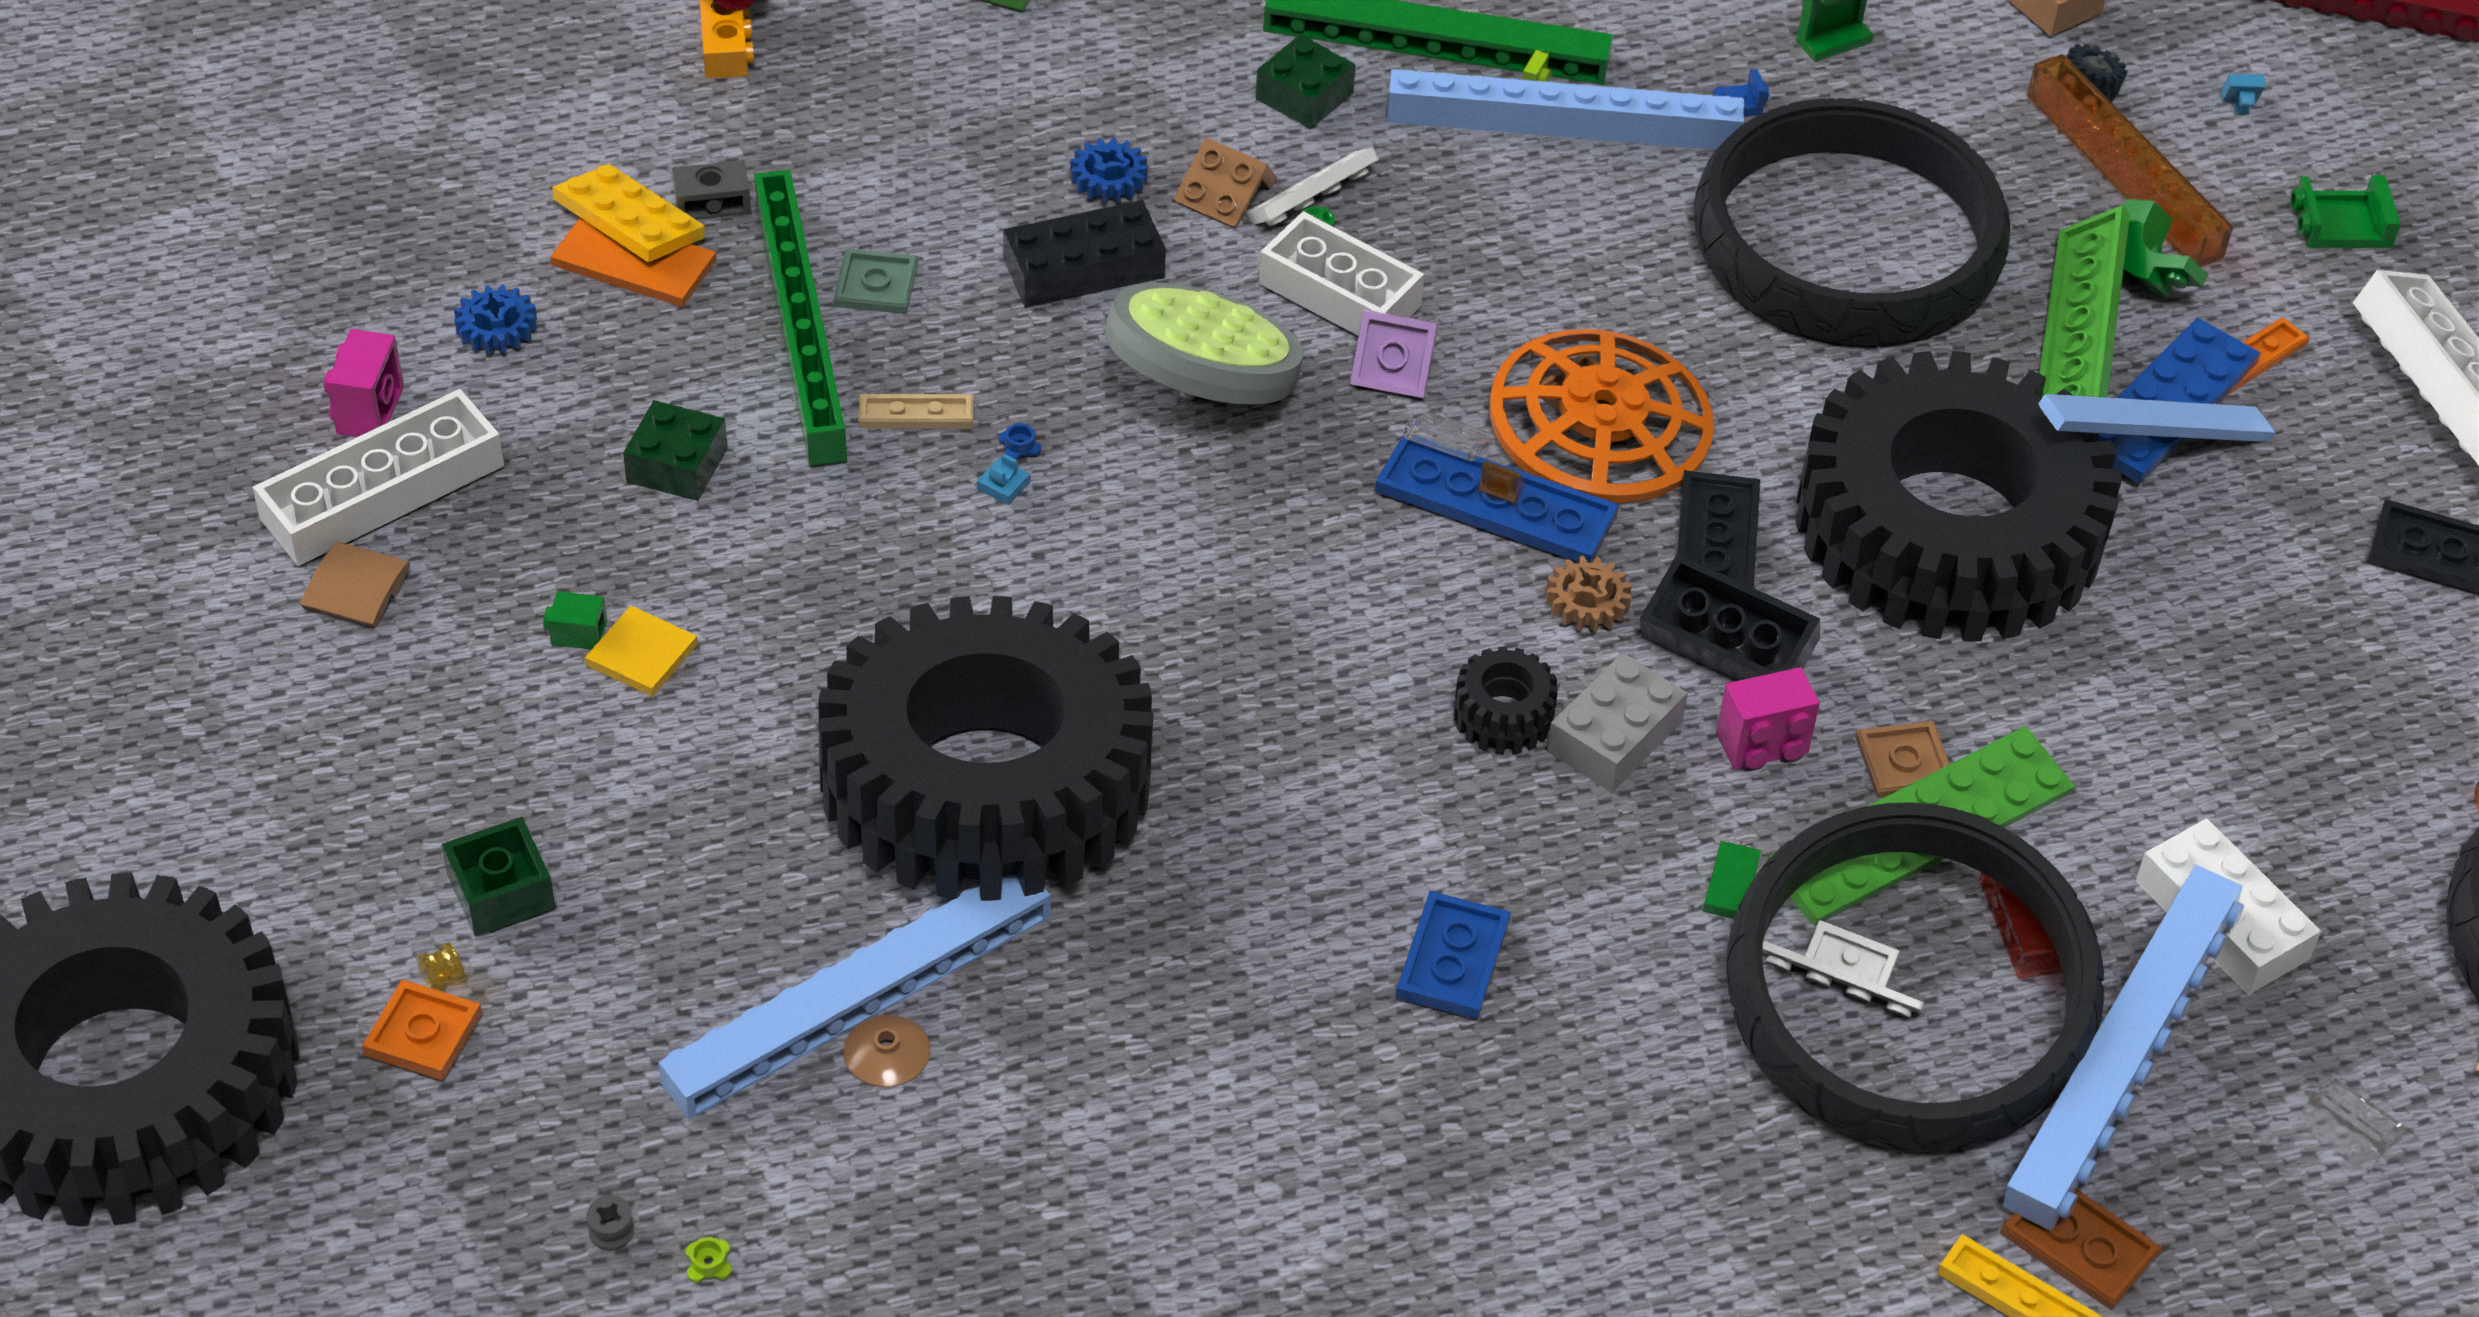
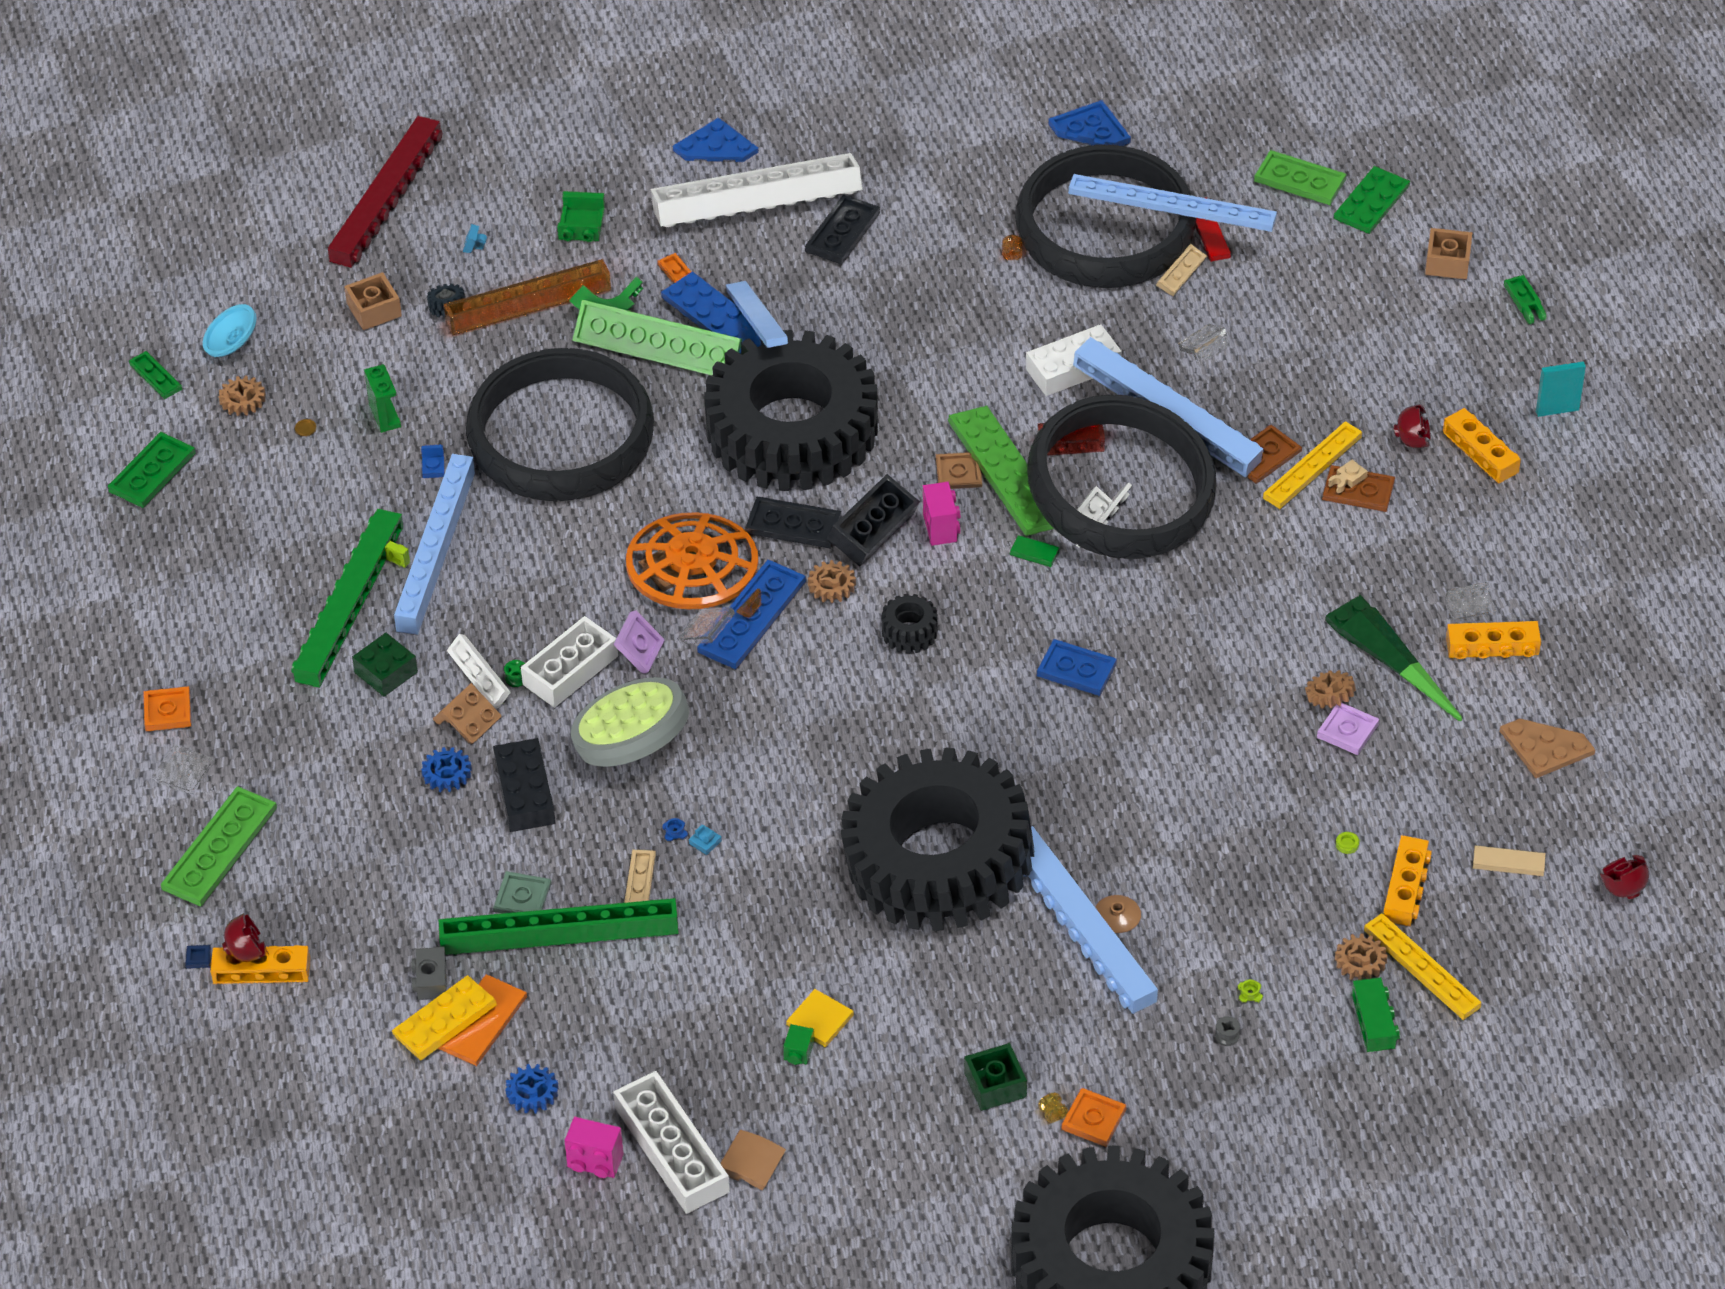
camera: 80 degrees left, 0 degrees up
(675, 450) = (665, 993): dark green brick -> none
(1617, 722) = (929, 575): light grey brick -> none

